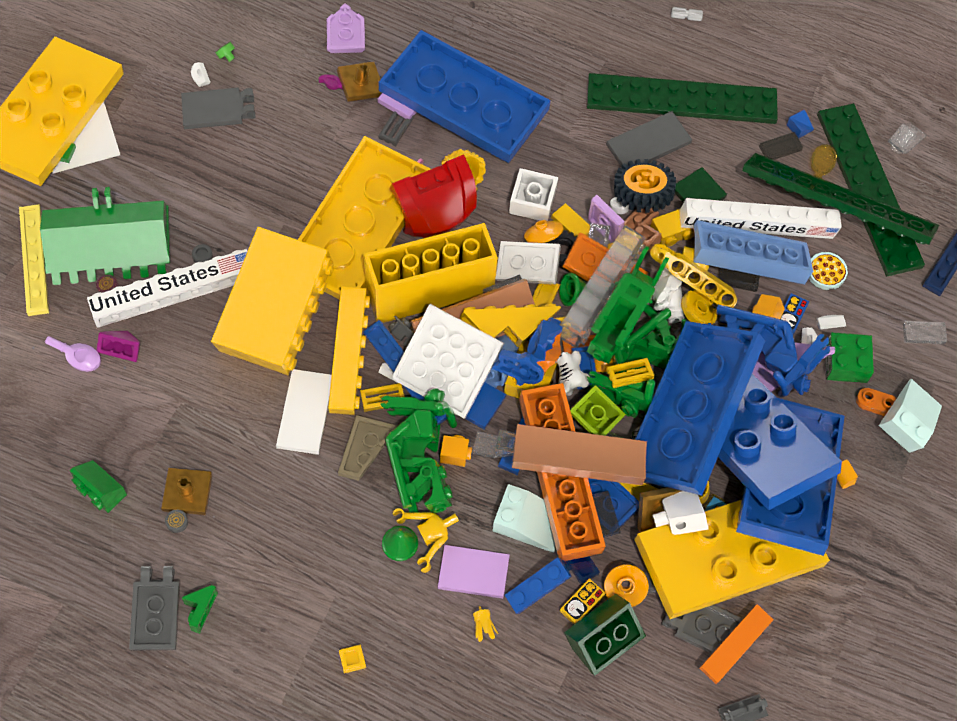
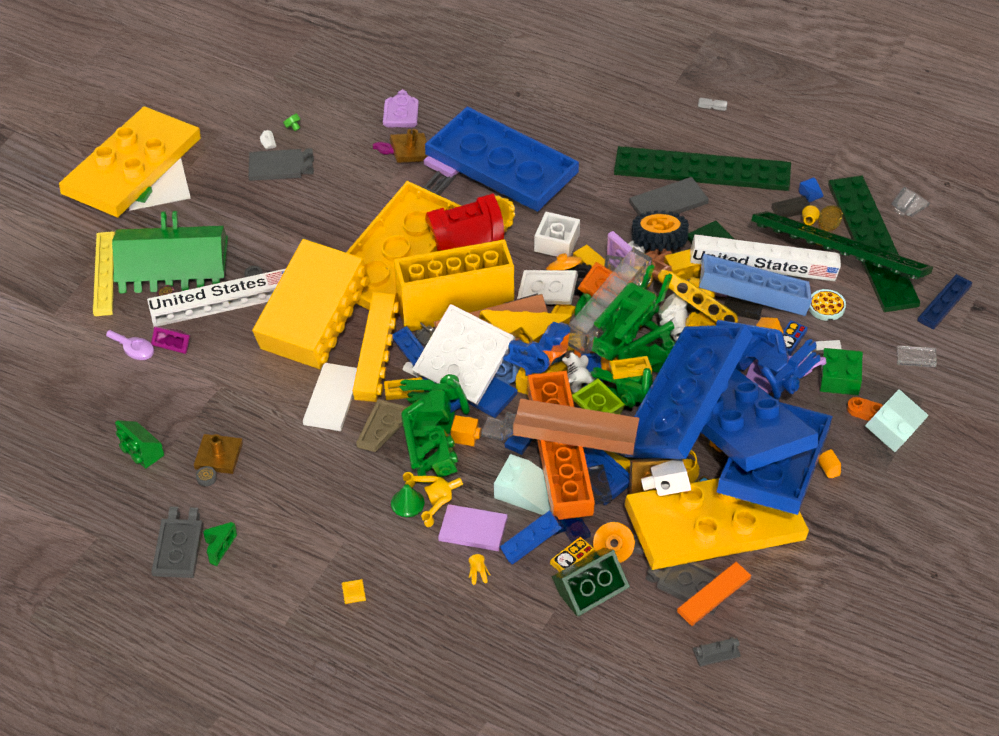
camera: 10 degrees right, 15 degrees down
(802, 158) = (810, 211): none -> yellow cone

